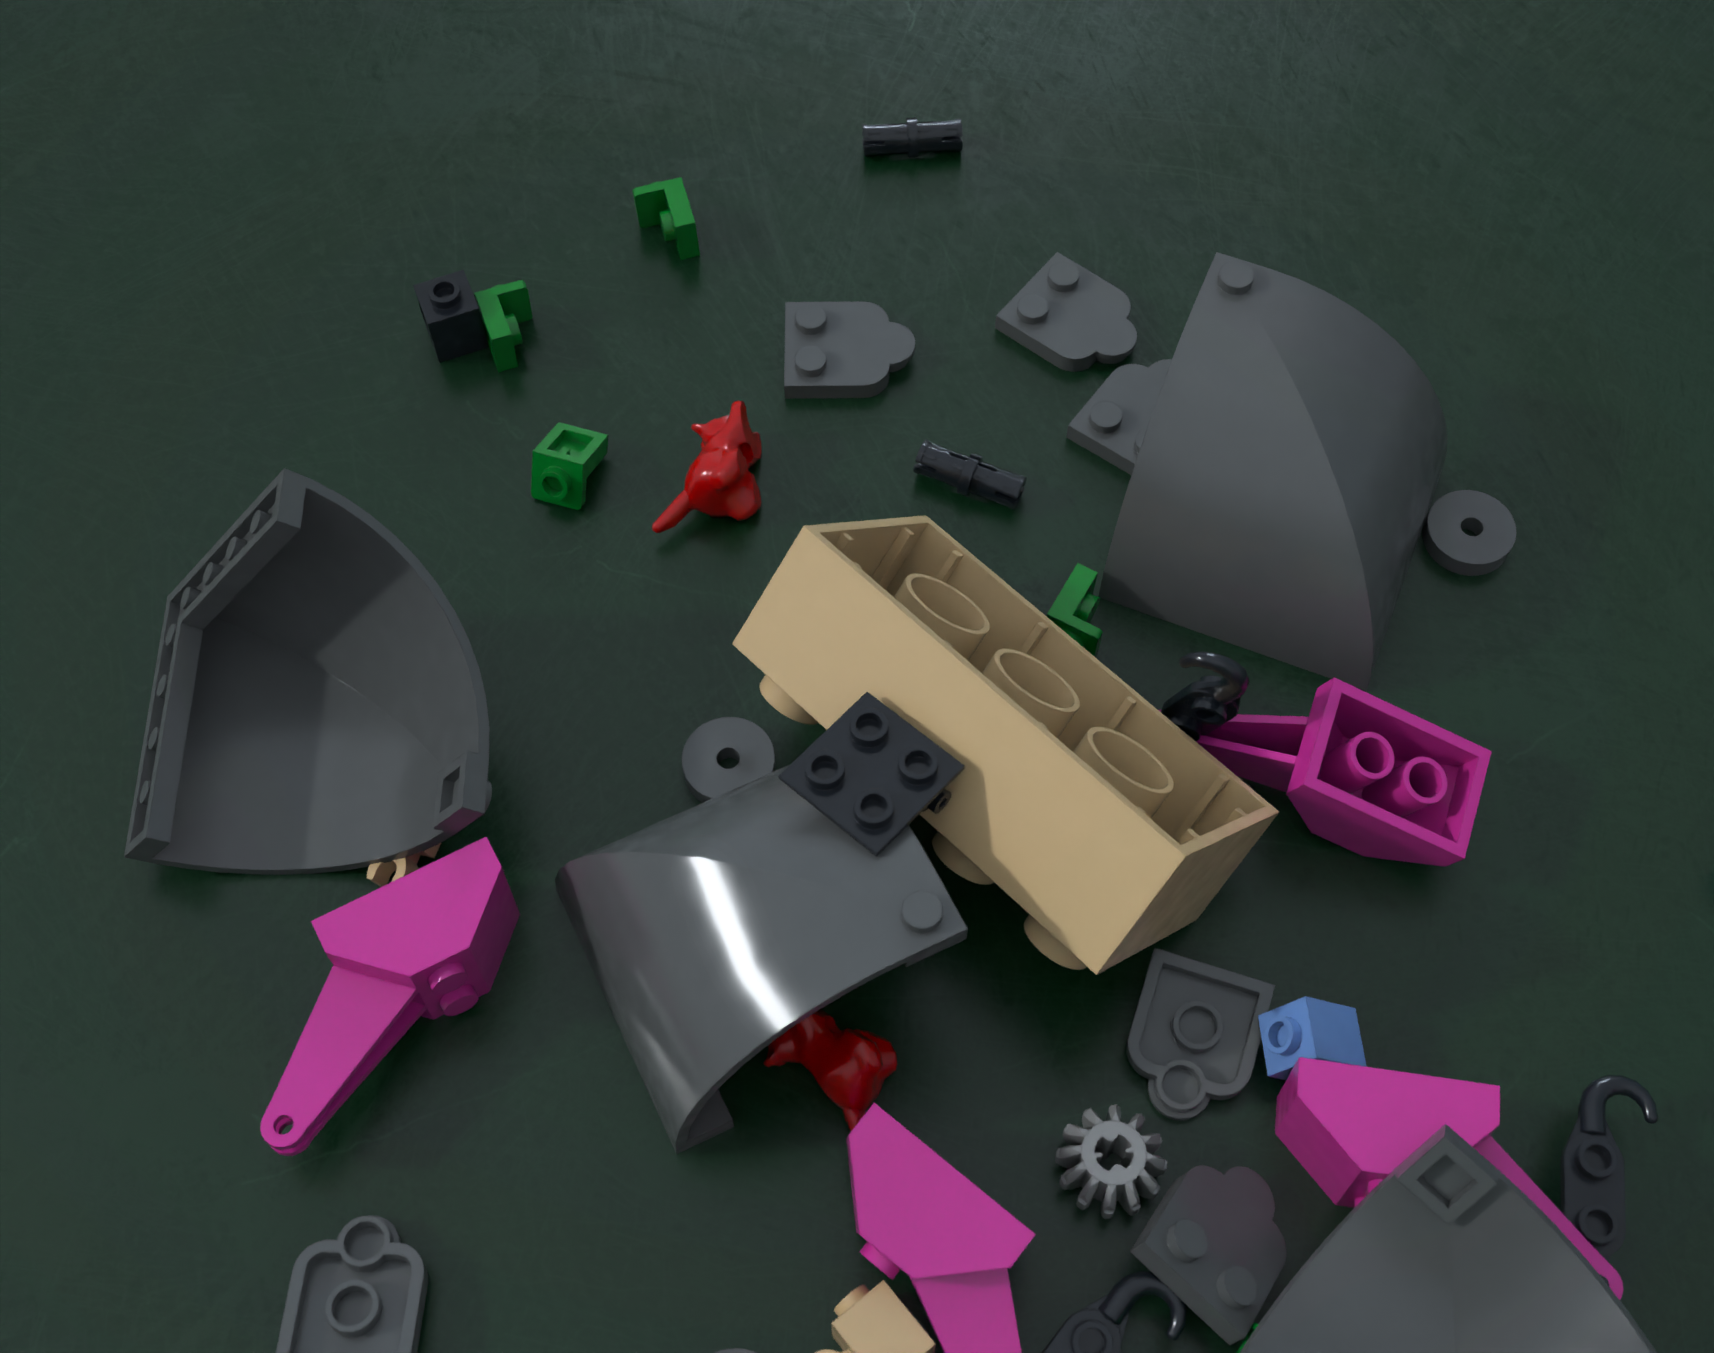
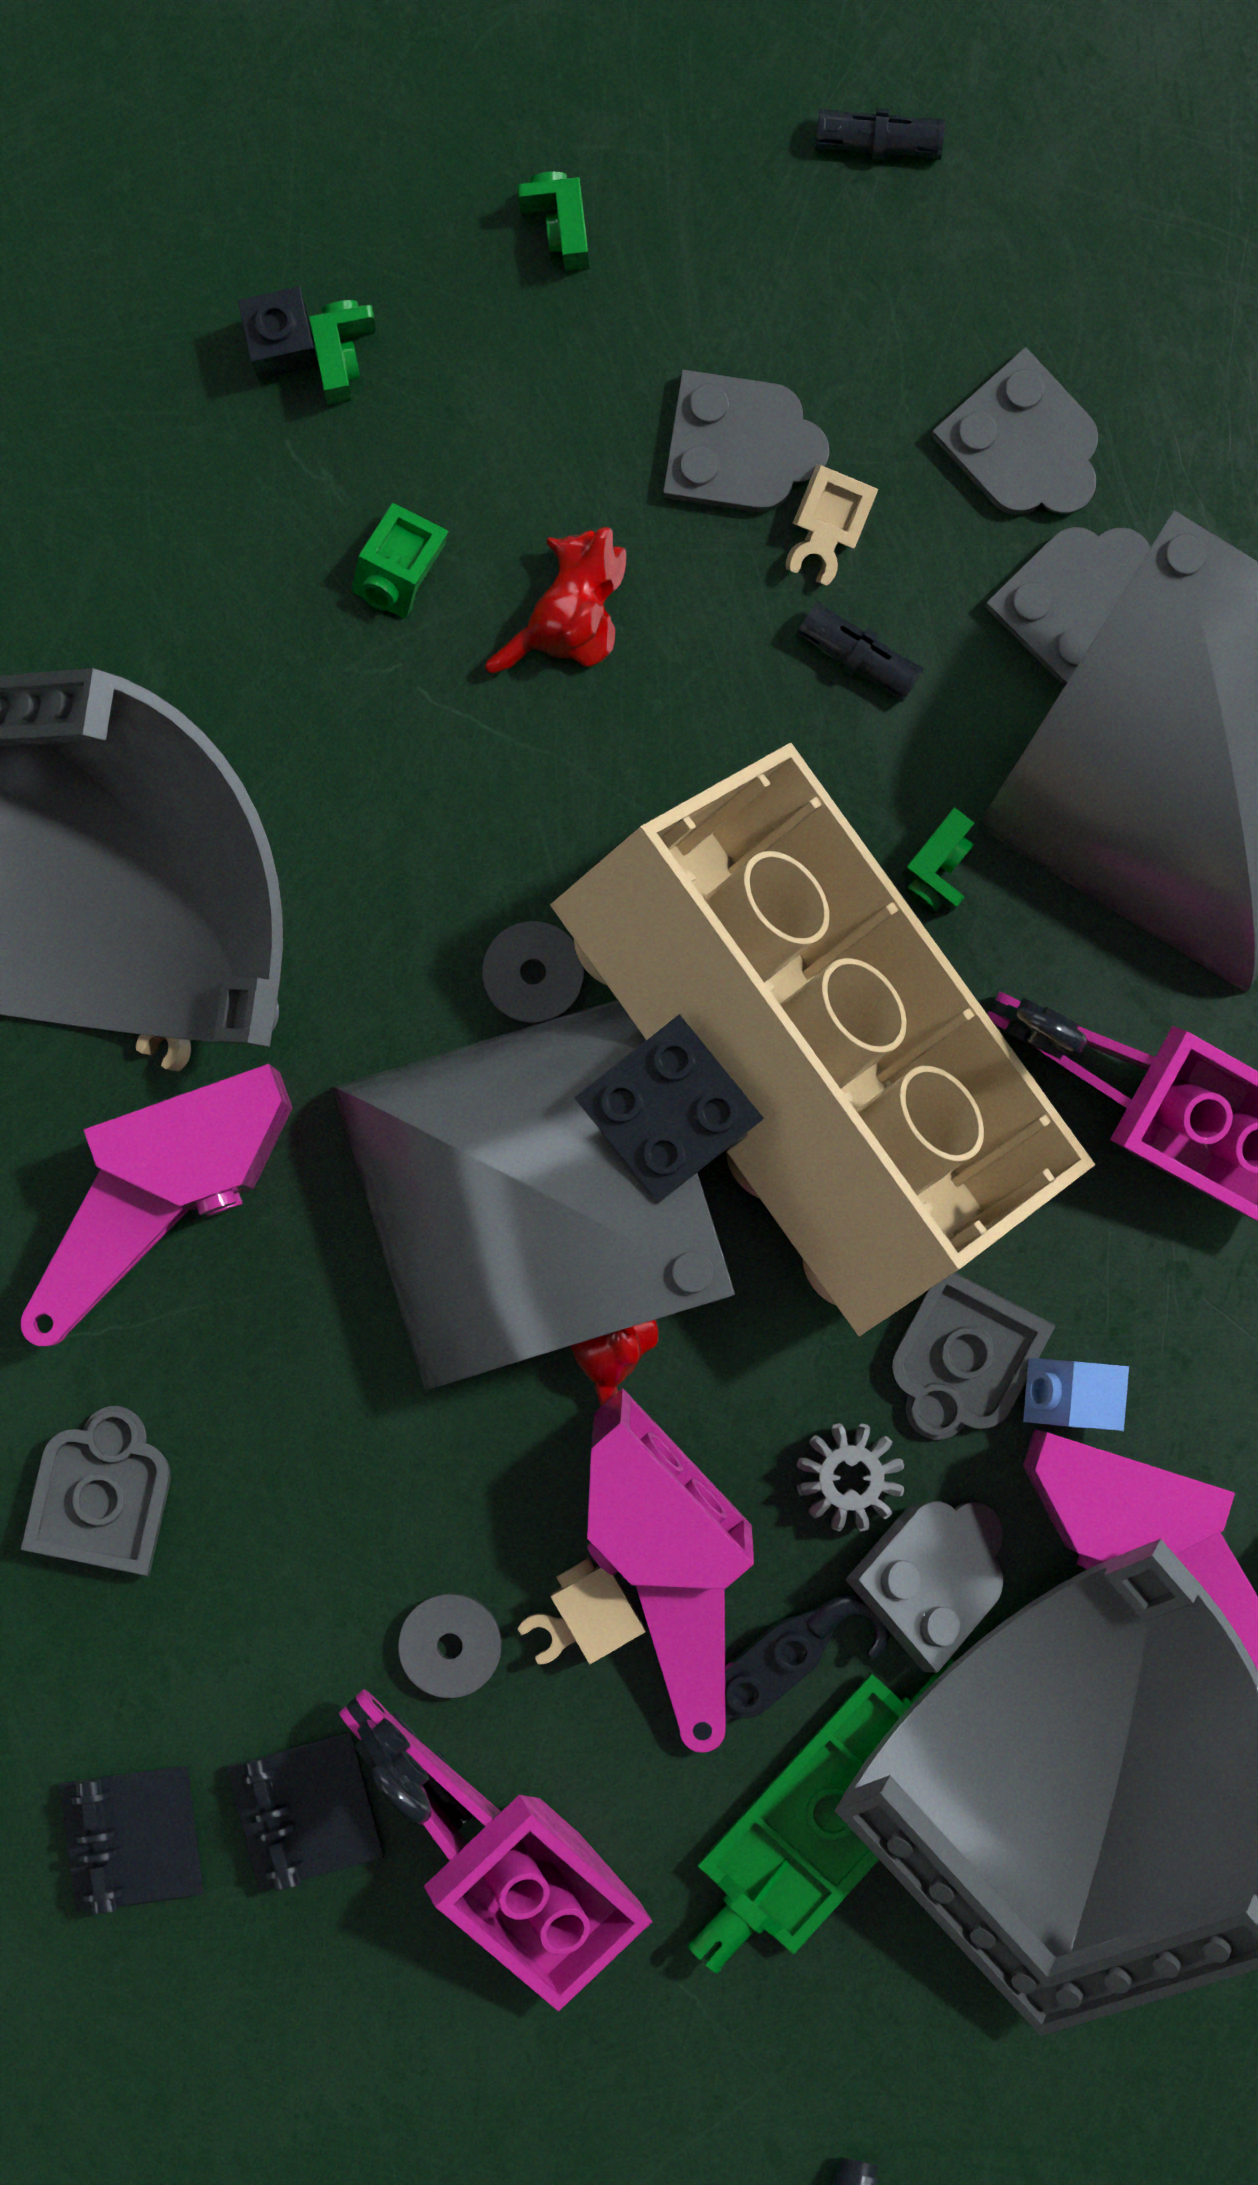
camera: 10 degrees right, 25 degrees up
(928, 382) = (833, 513): none -> tan plate

